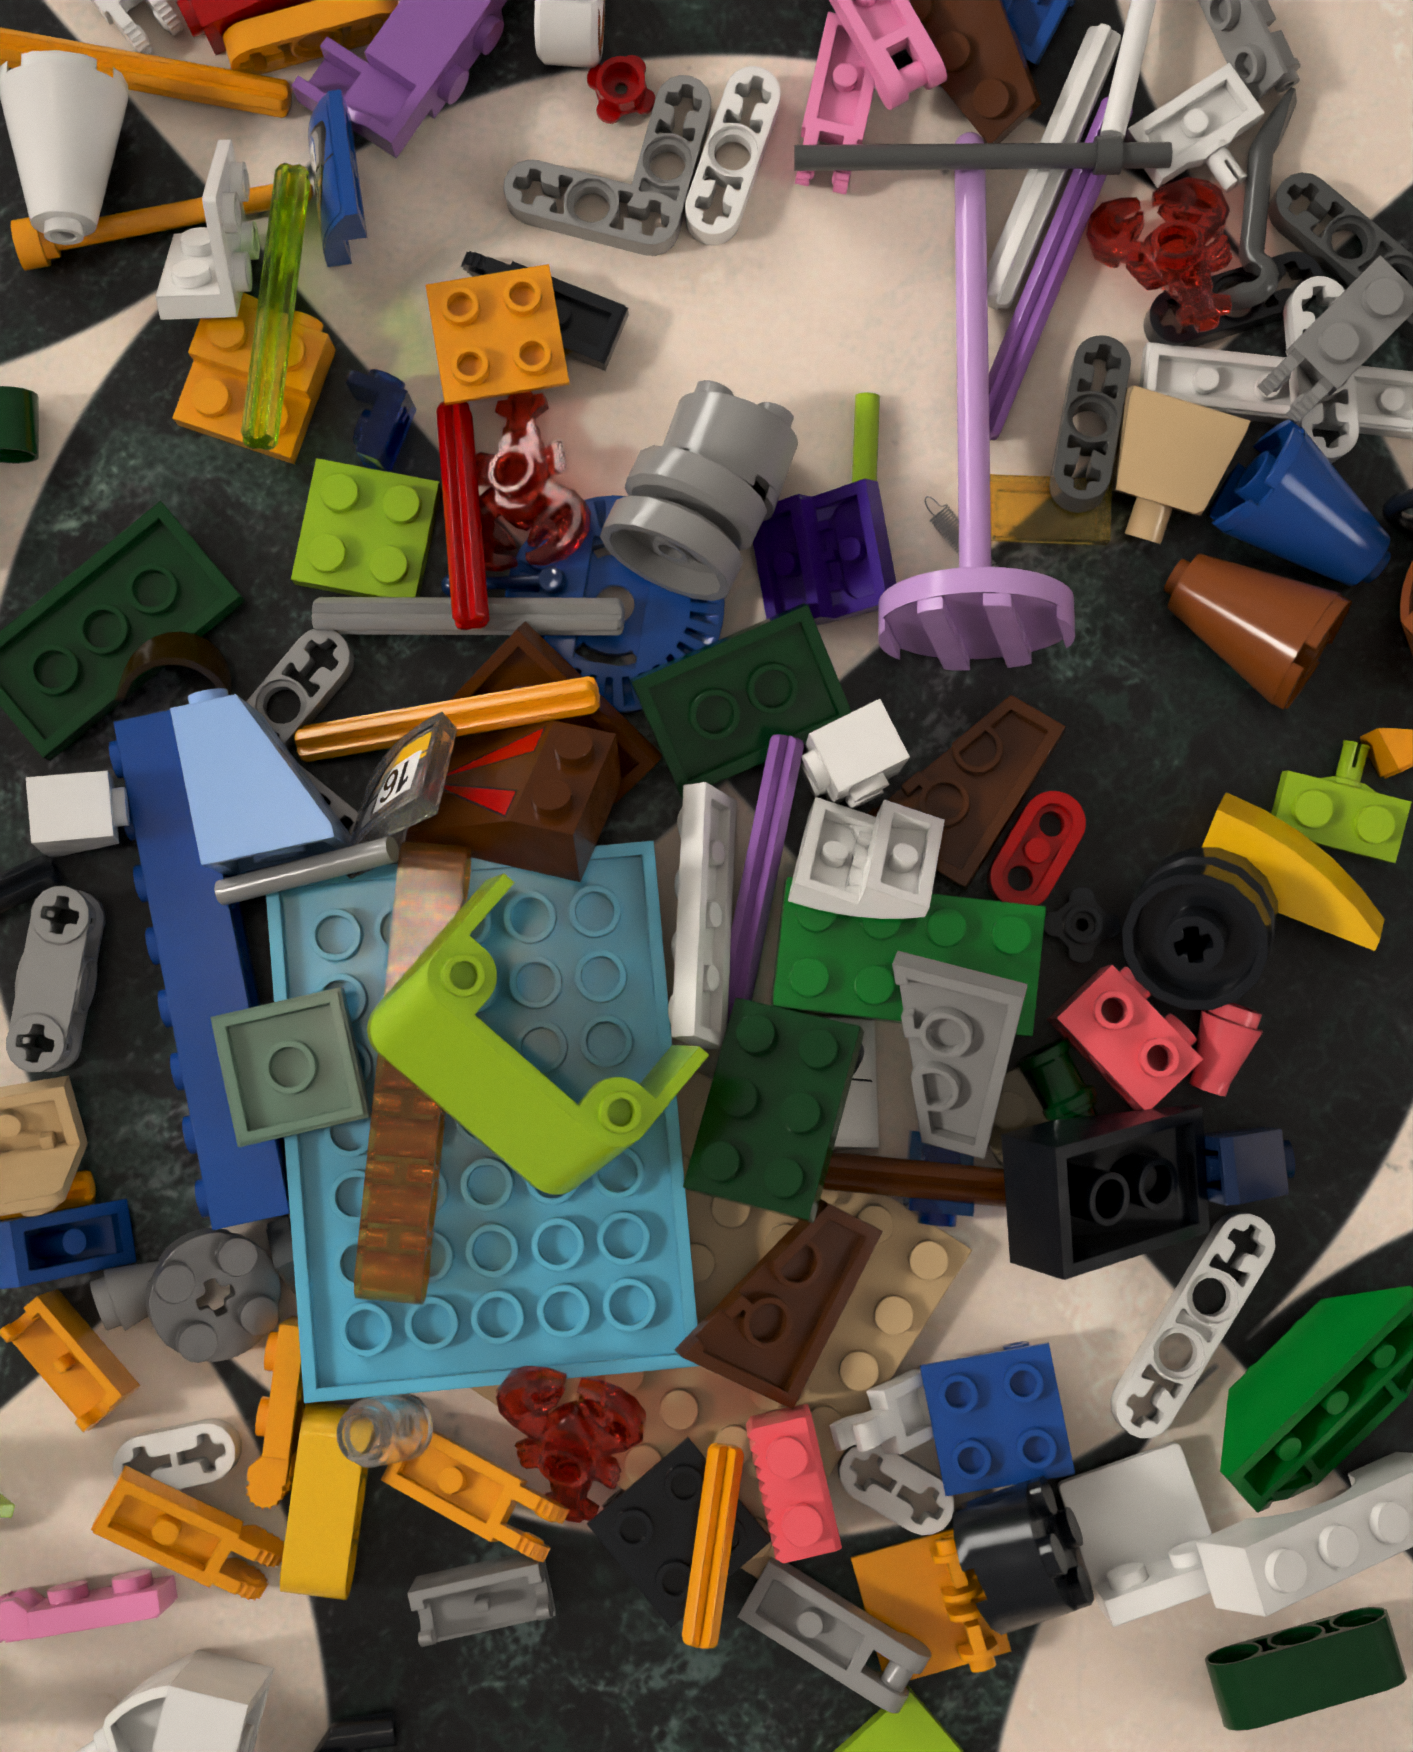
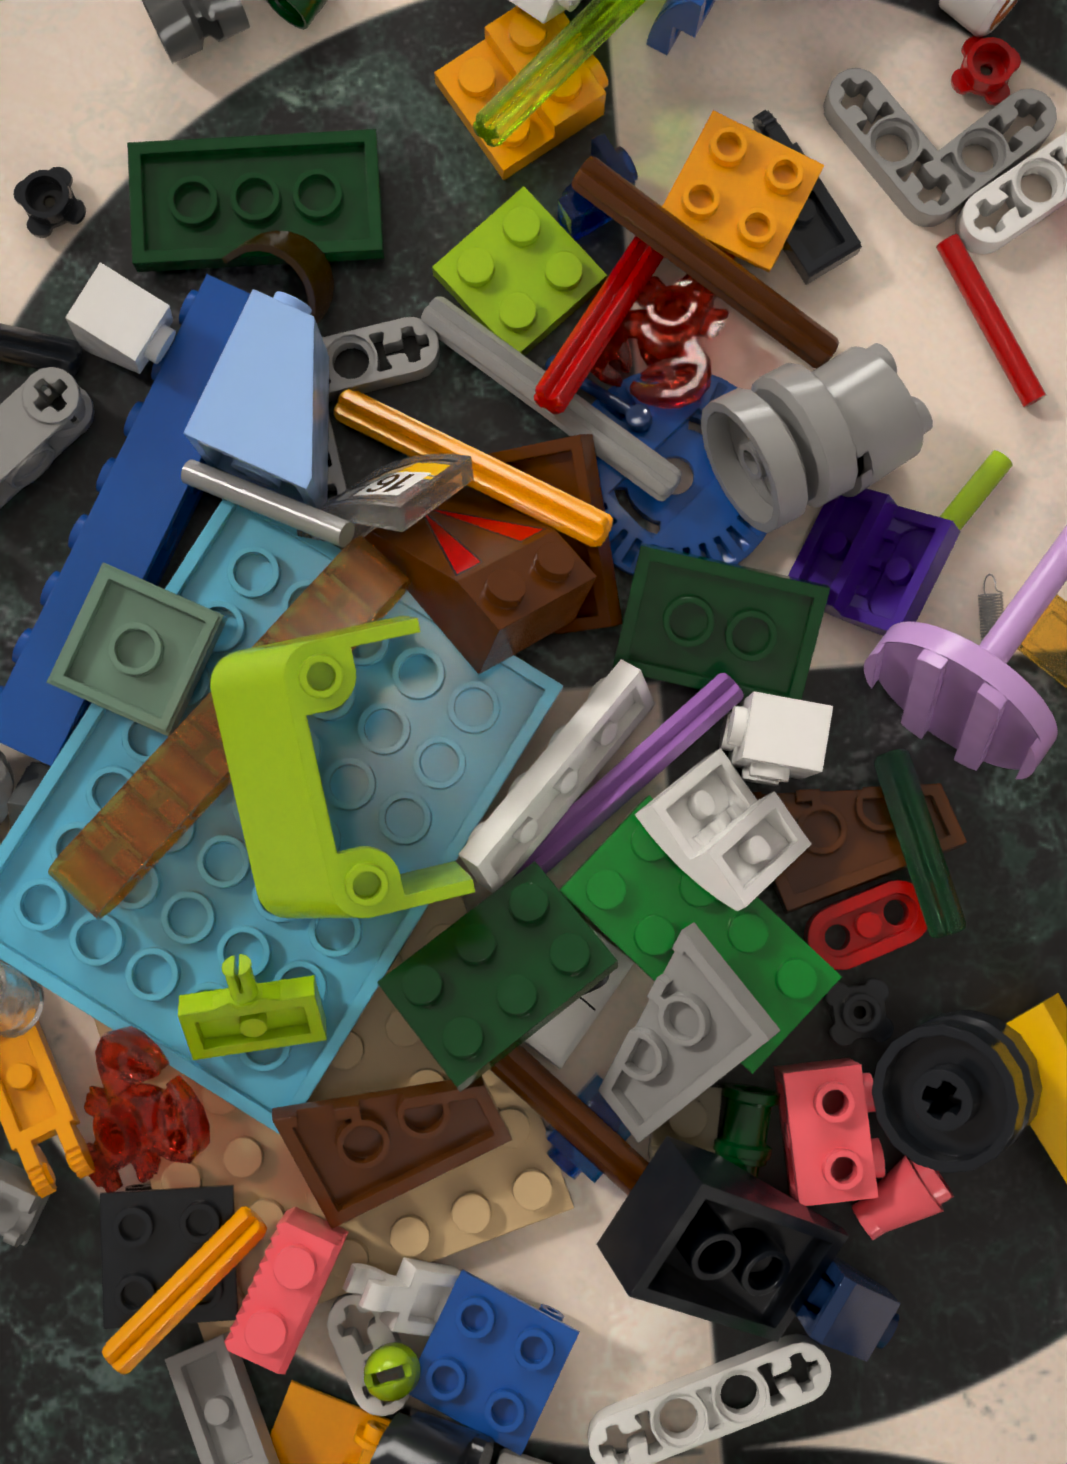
camera: 35 degrees right, 0 degrees up
(512, 415) = (704, 262): none -> reddish brown axle
(602, 1286) = (251, 1013): none -> lime plate
(775, 290) = (990, 320): none -> red piece
(913, 1477) = (388, 1357): none -> lime hinge
(1029, 755) = (919, 843): none -> clear green axle

